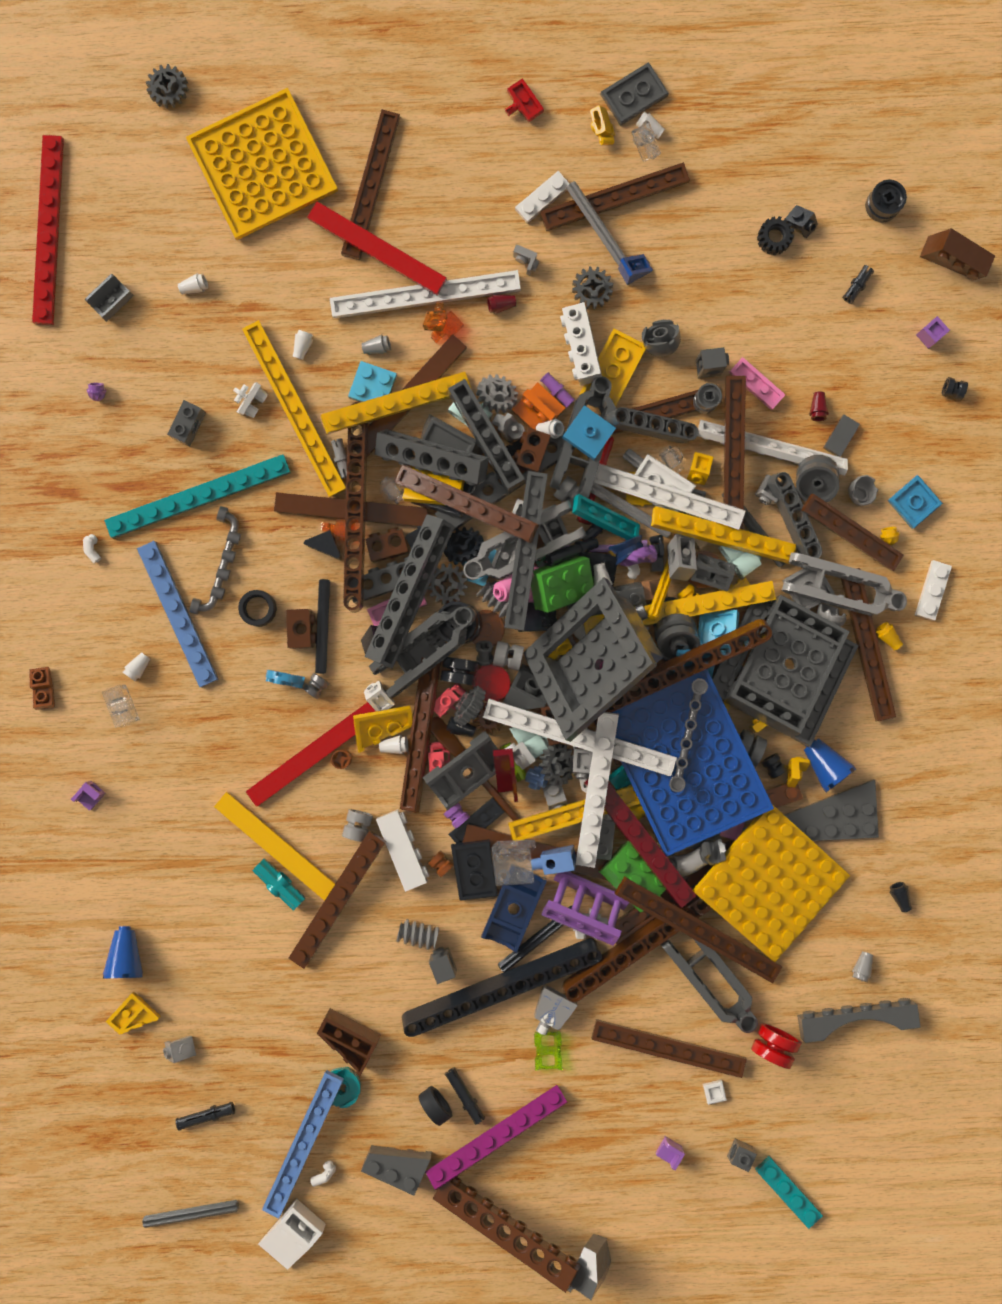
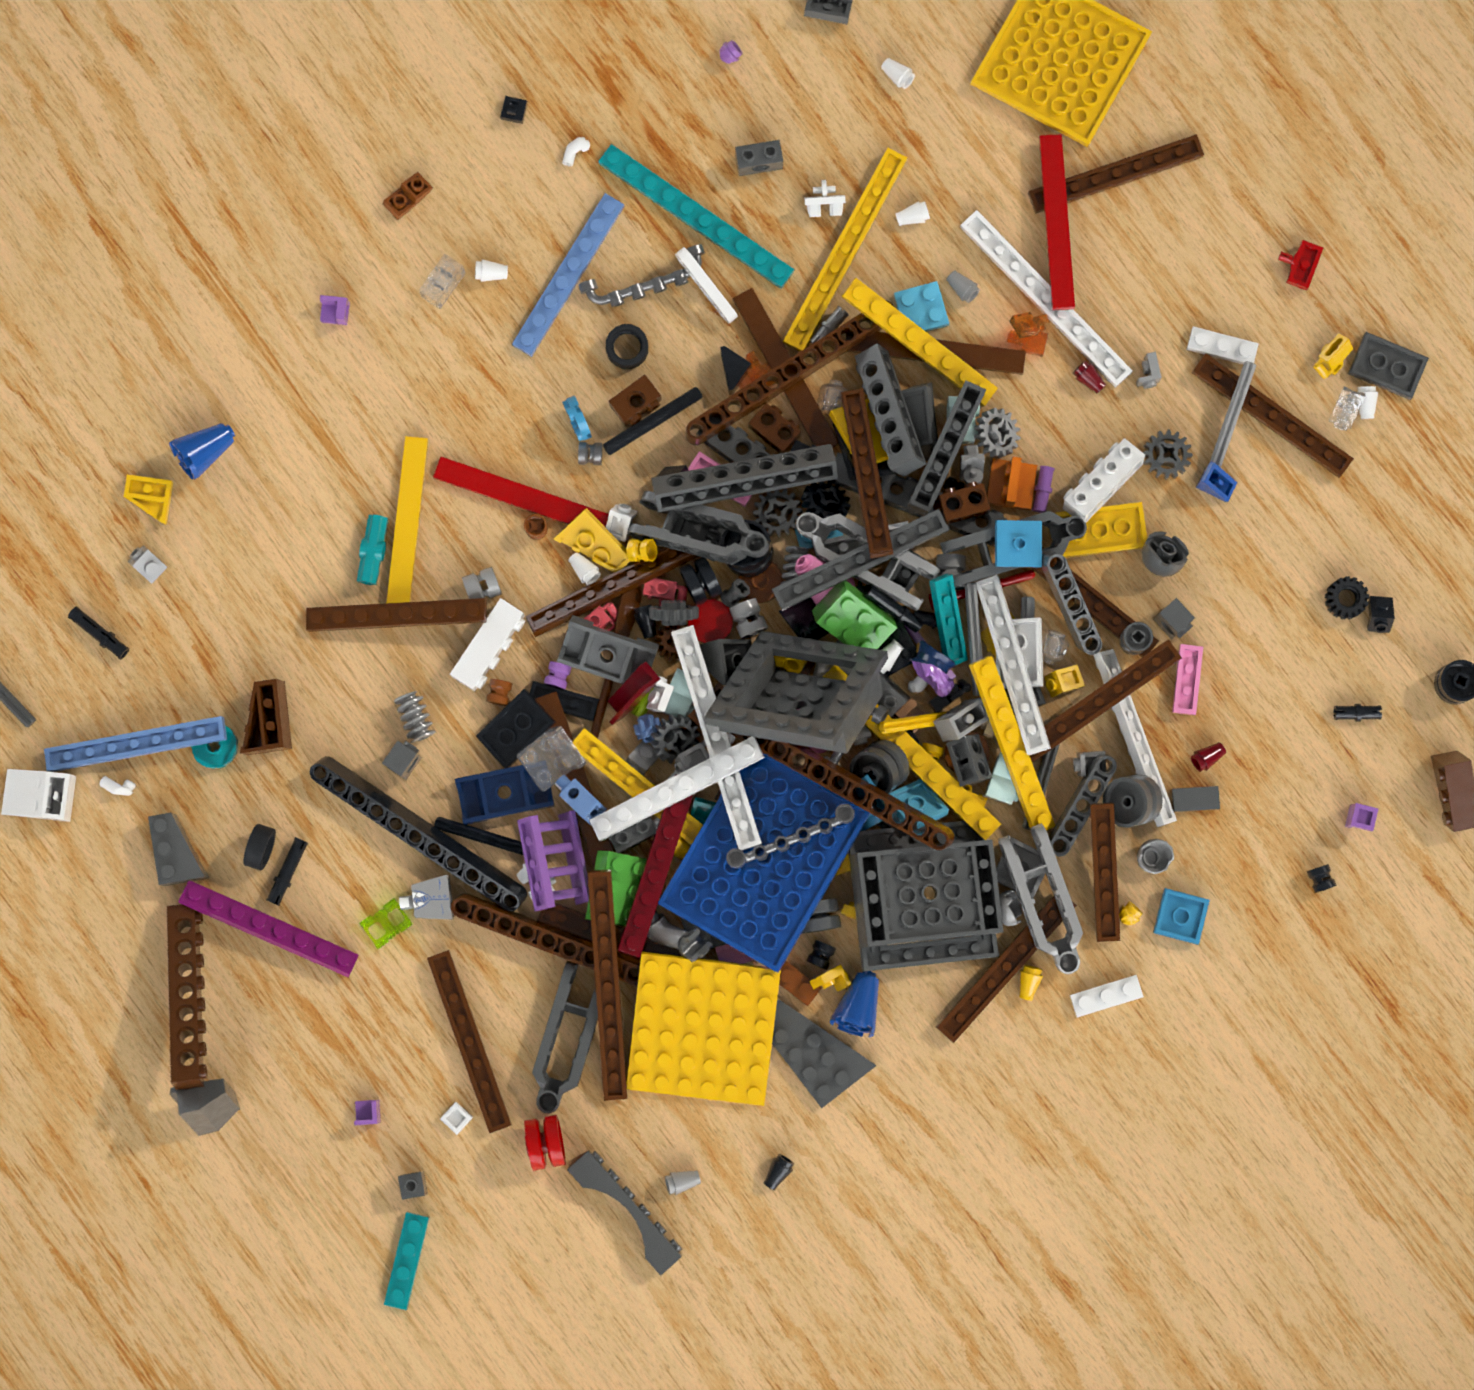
camera: 55 degrees right, 5 degrees down
(32, 571) = (513, 109): none -> black tile
(252, 523) = (706, 285): none -> white beam
(409, 698) = (641, 550): none -> yellow wheel
(553, 427) = (999, 507): white cone -> none

